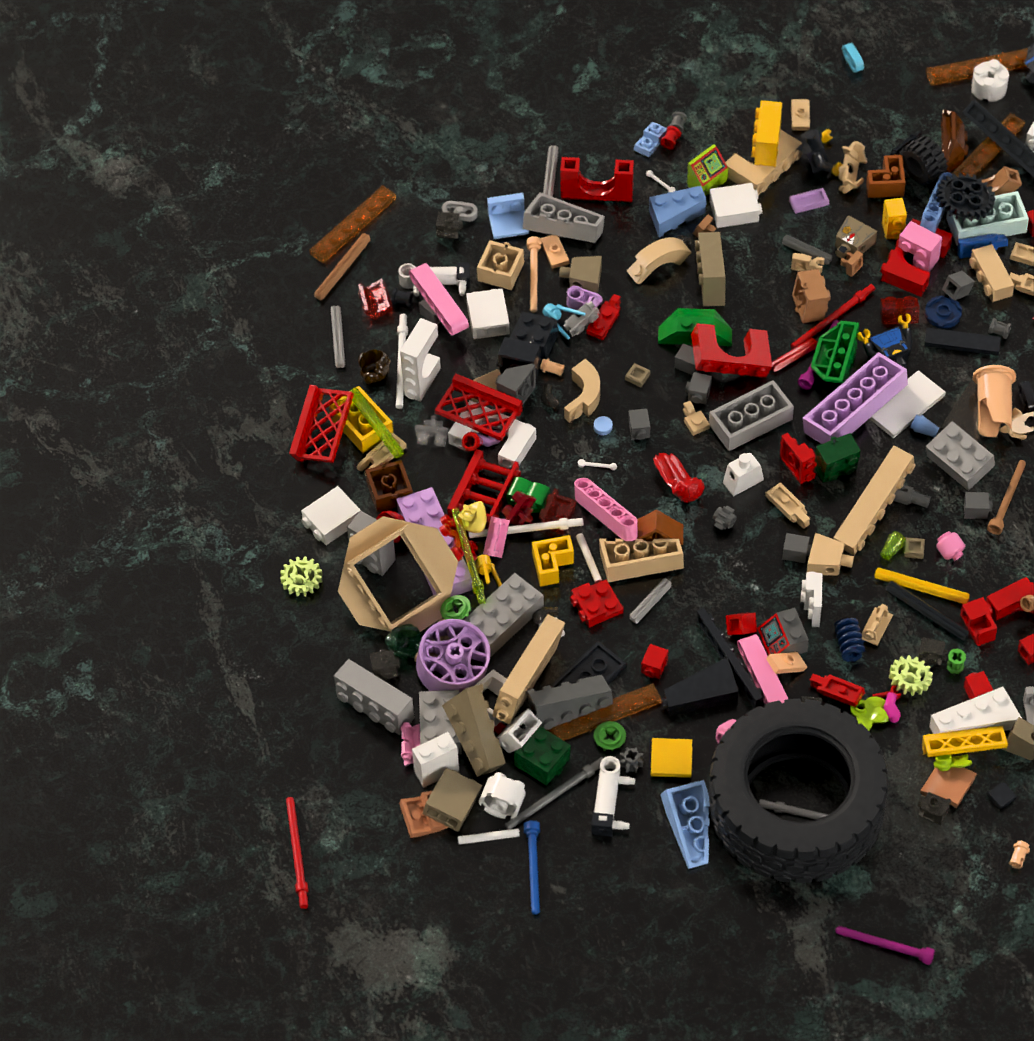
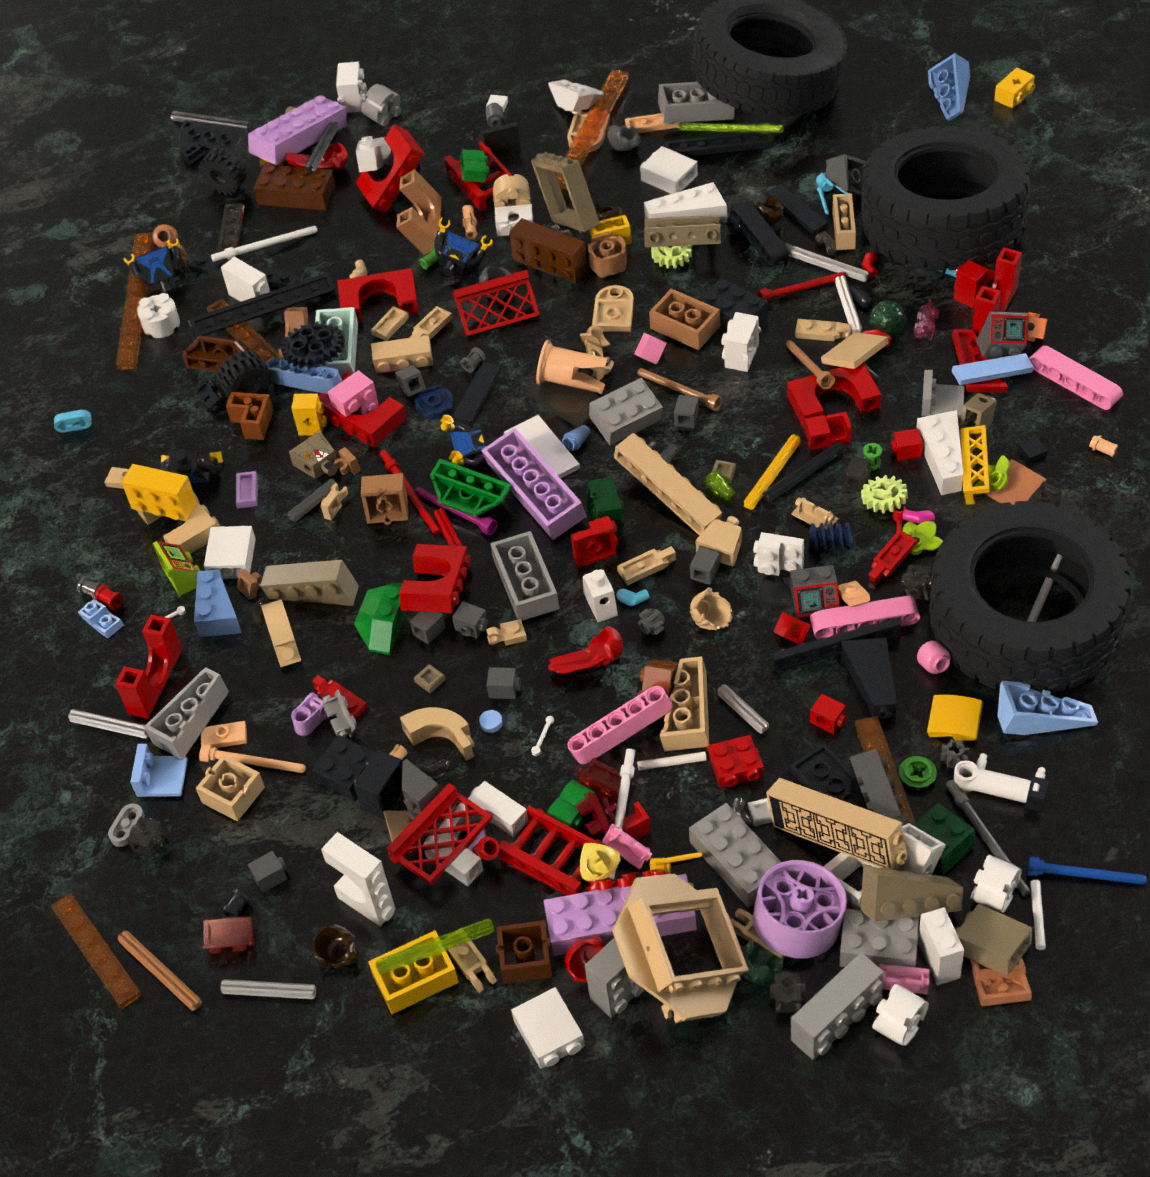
camera: 75 degrees left, 5 degrees down
(301, 575) = (640, 1067): yellowish green gear -> none
(301, 886) = (1094, 1132): red bar -> none
(308, 423) = (405, 1033): red fence -> none
(373, 740) = (900, 1015): none -> white brick
(402, 332) = (287, 913): white bar -> none
(438, 299) = (265, 854): bright pink beam -> none
(440, 433) = (450, 907): clear hips -> none
(446, 275) = (226, 837): white piece -> none
(461, 602) = (738, 886): bright green gear -> none
(477, 584) = (702, 866): clear neon green bar -> none
(488, 313) = (293, 814): white brick -> none
(520, 542) = (638, 823): none -> red panel
(549, 555) = (672, 796): yellow brick -> none
(553, 311) = (319, 744): medium azure plant -> none
(584, 272) = (272, 706): dark tan torso -> none
(741, 557) = (710, 610): none -> tan hair
(749, 501) = (631, 598): none -> medium azure arm
(853, 155) = (207, 438): tan piece -> none
(894, 307) = (421, 434): clear red bracket -> none
(950, 546) = (731, 438): bright pink head -> none
(966, 245) = (363, 355): blue hinge -> none

